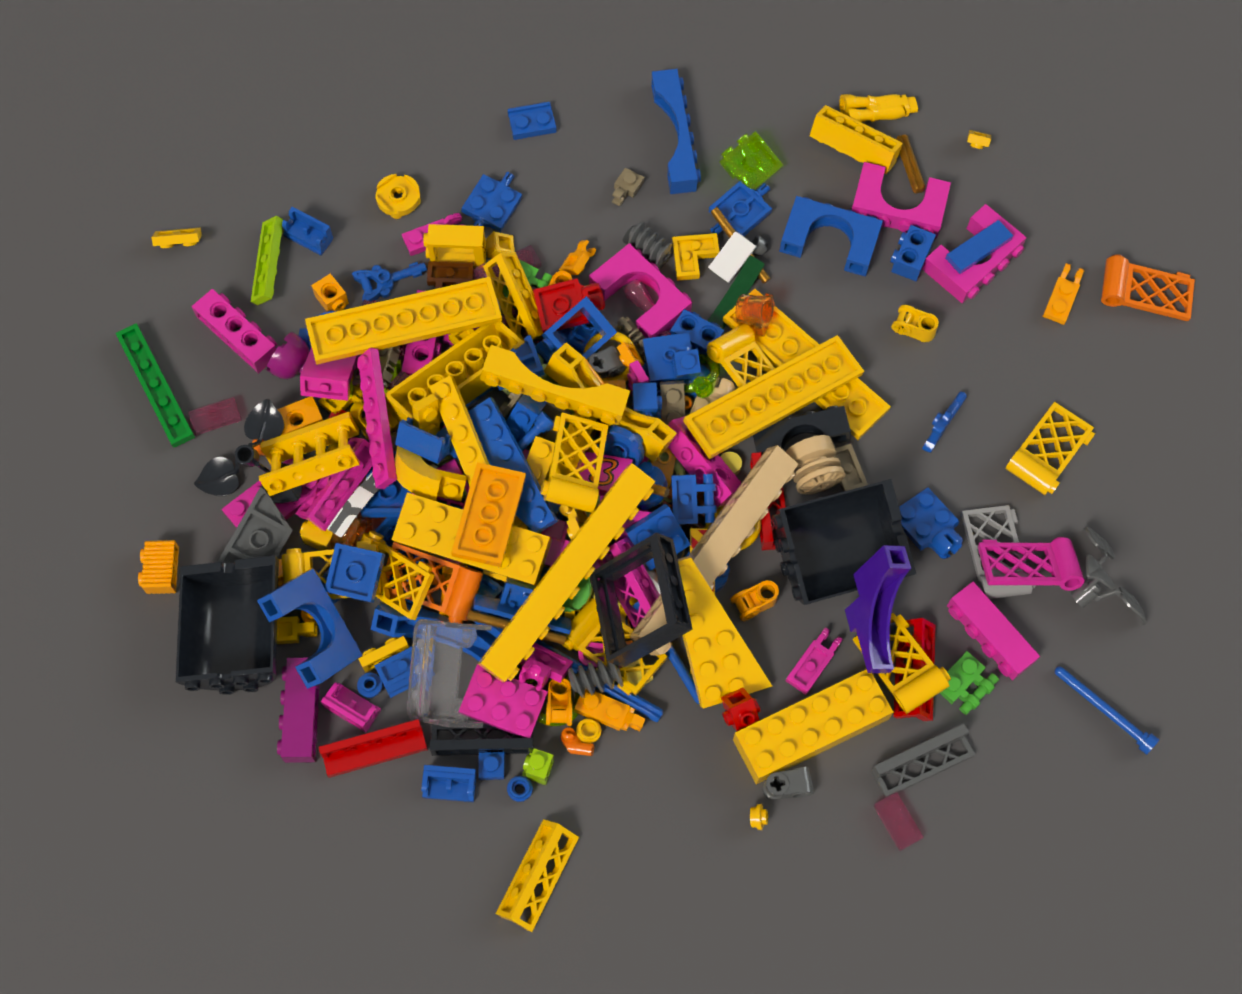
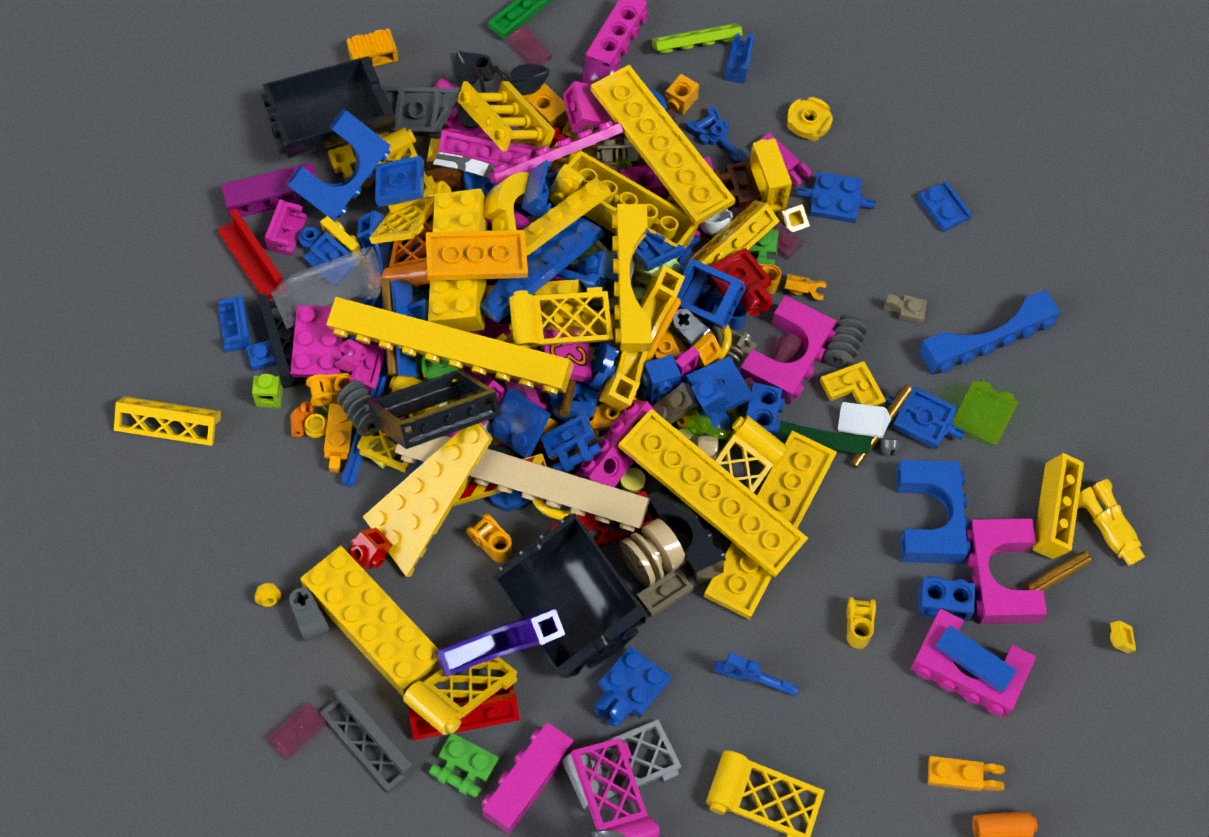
camera: 70 degrees right, 5 degrees down
(516, 781) = (241, 378): blue plate -> none
(755, 311) = (802, 453): clear orange piece -> none
(812, 663) = (442, 609): dark pink hinge -> none

